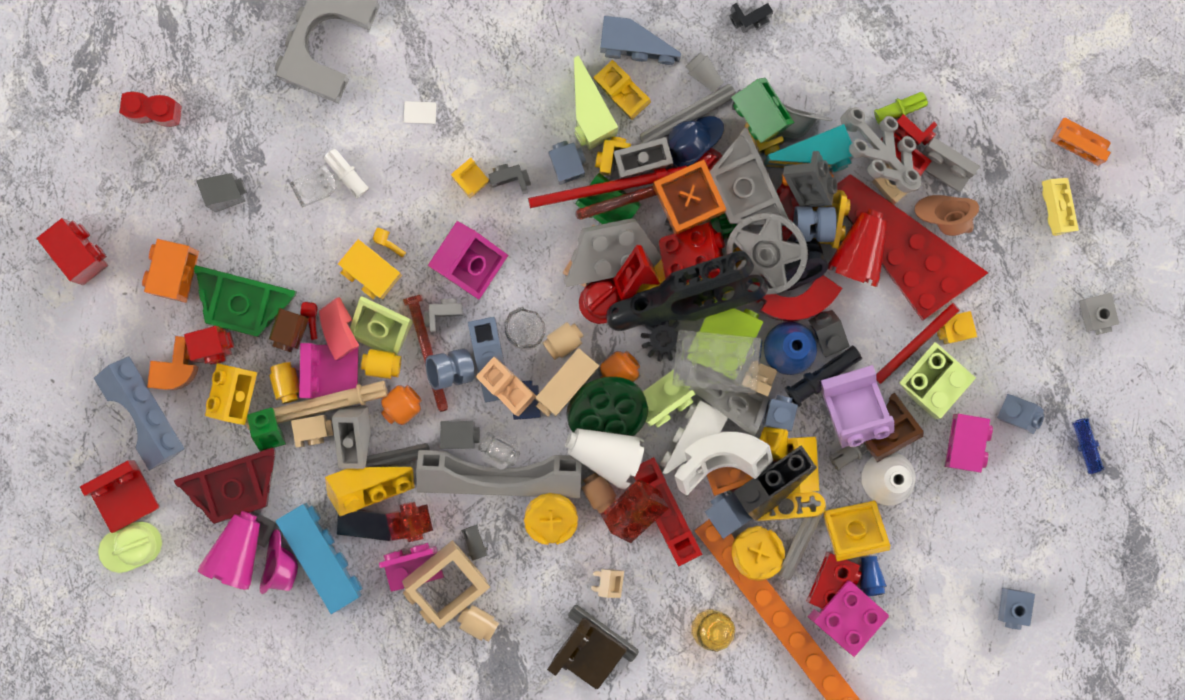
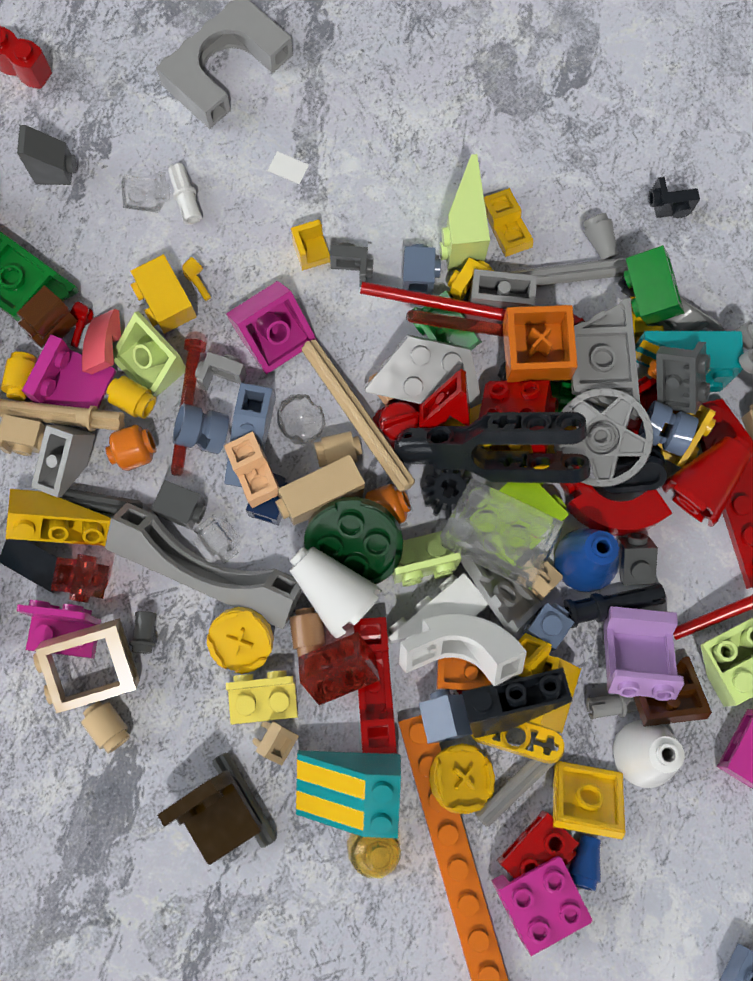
camera: 25 degrees right, 10 degrees down
(567, 306) = (358, 416): none -> tan axle
(586, 555) = (262, 698): none -> light yellow bracket
(629, 38) = (538, 176): sand blue slope -> none
(679, 595) = (350, 791): none -> teal slope
(693, 139) = (566, 289): dark blue piece -> none

